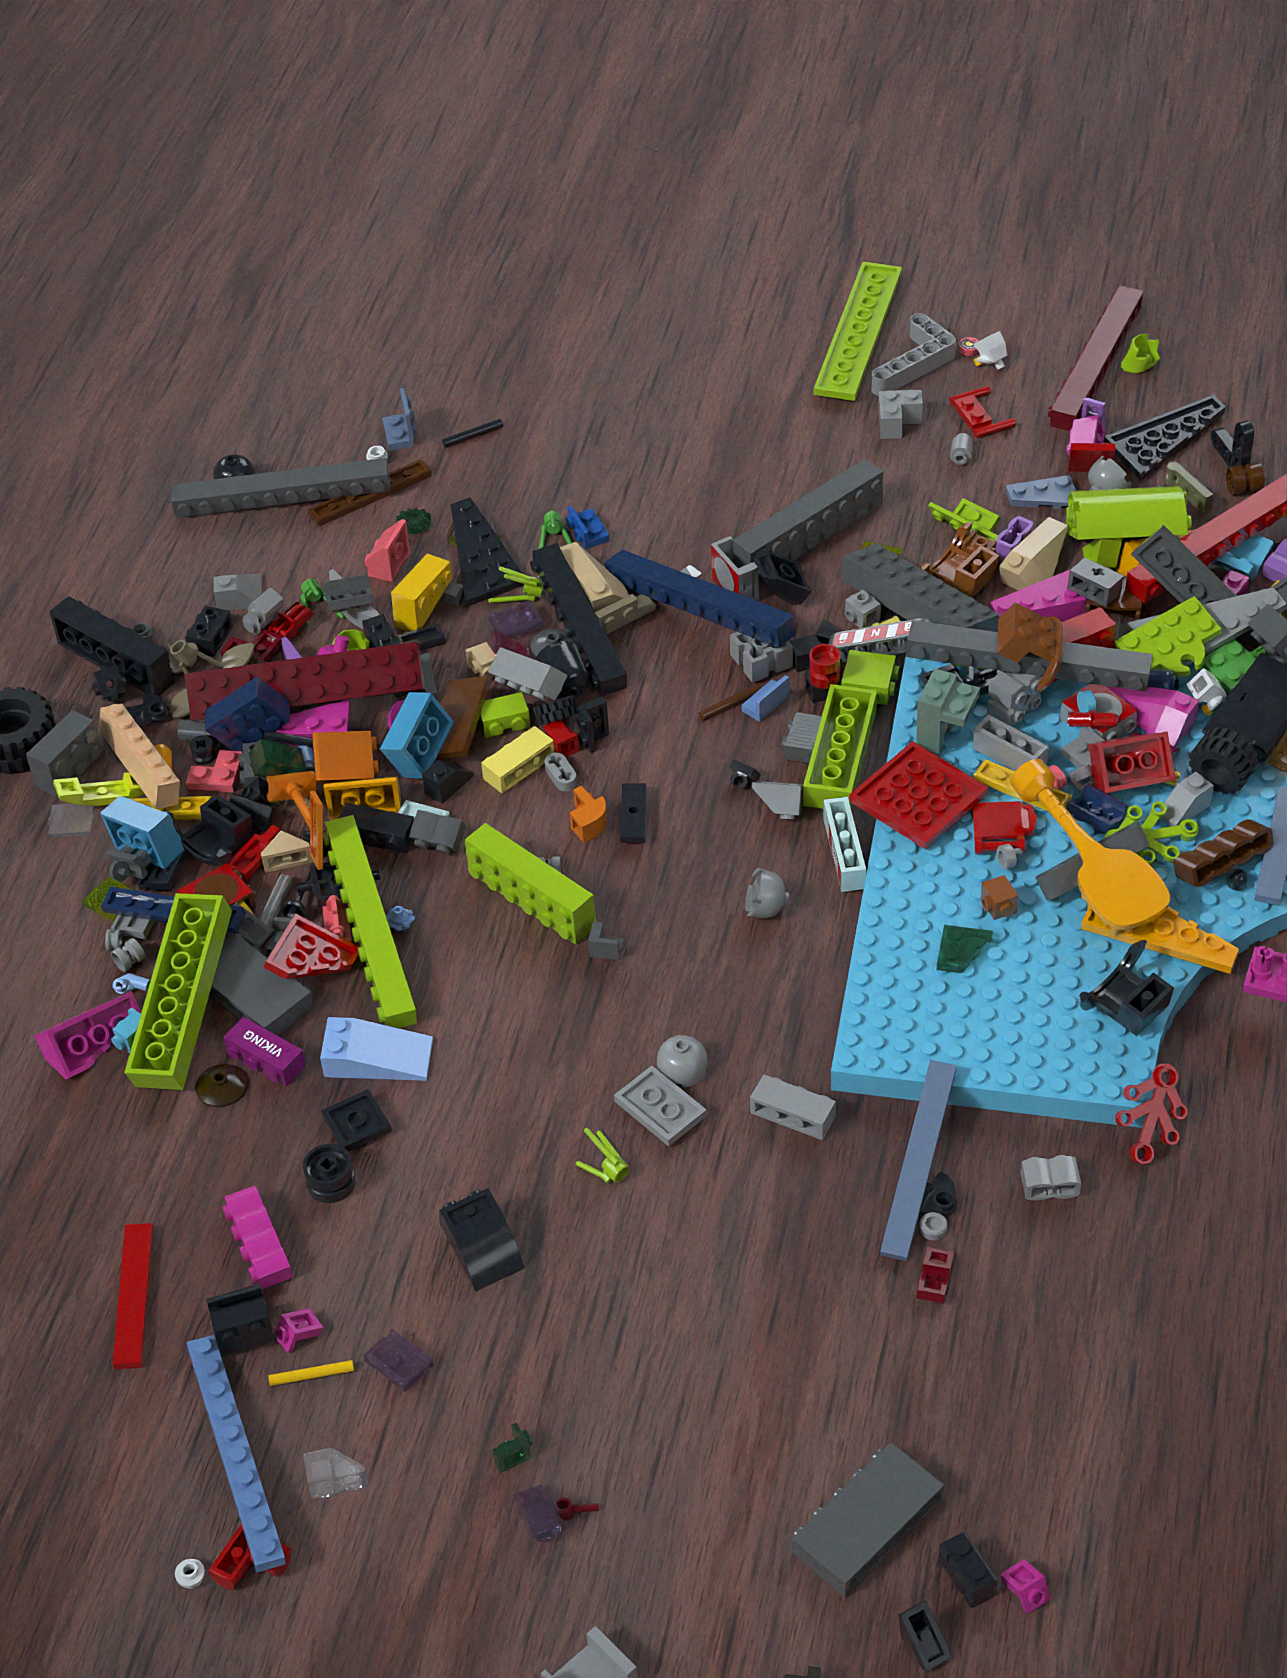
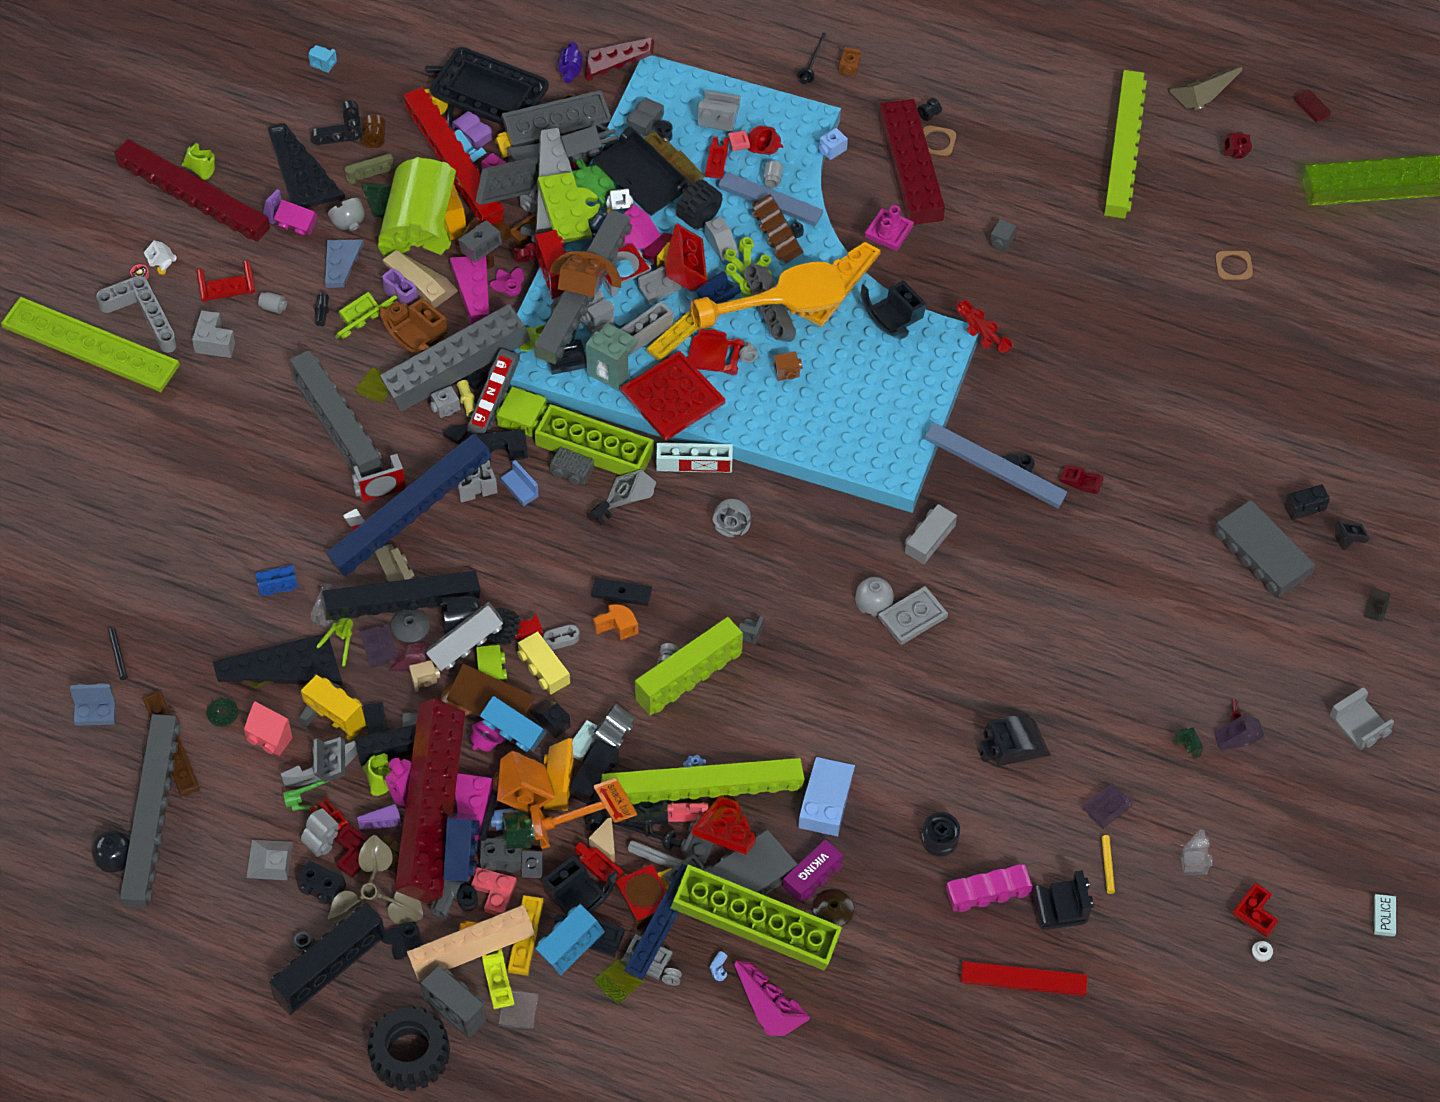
camera: 85 degrees left, 10 degrees up
(109, 674) = (368, 966): black brick -> none
(126, 1031) = (773, 966): medium azure brick -> none
(128, 863) = (596, 961): dark grey hips -> none
(128, 955) = (691, 966): light grey wheel -> none
(236, 1454) = (1172, 913): medium blue plate -> none
(260, 813) = (552, 860): black tile -> none
(297, 1326) = (1070, 863): dark pink bracket -> none
(356, 1120) = (891, 814): black plate -> none
(376, 452) = (122, 727): white plate -> none
(553, 525) = (265, 604): bright green plant -> none
(592, 722) = (527, 604): black bracket -> none
(595, 580) = (363, 573): tan wedge -> none
(613, 1165) = (962, 652): lime plant -> none
(729, 702) = (514, 511): reddish brown bar -> none
(783, 577) = (400, 443): black slope -> none
(824, 666) = (519, 430): red wheel -> none
(933, 1226) = (1042, 471): light grey tile -> none
(960, 947) = (823, 400): clear green wing -> none
(966, 490) = (321, 309): none -> black axle
(1027, 1585) = (1317, 474): dark pink bracket -> none
(1050, 1178) = (1016, 398): light grey brick -> none
(1060, 779) = (678, 309): coral tile -> none
(1081, 773) = (679, 293): light grey tile -> none
(1084, 455) = (322, 217): red tile -> none
(1092, 719) = (641, 269): red axle -> none

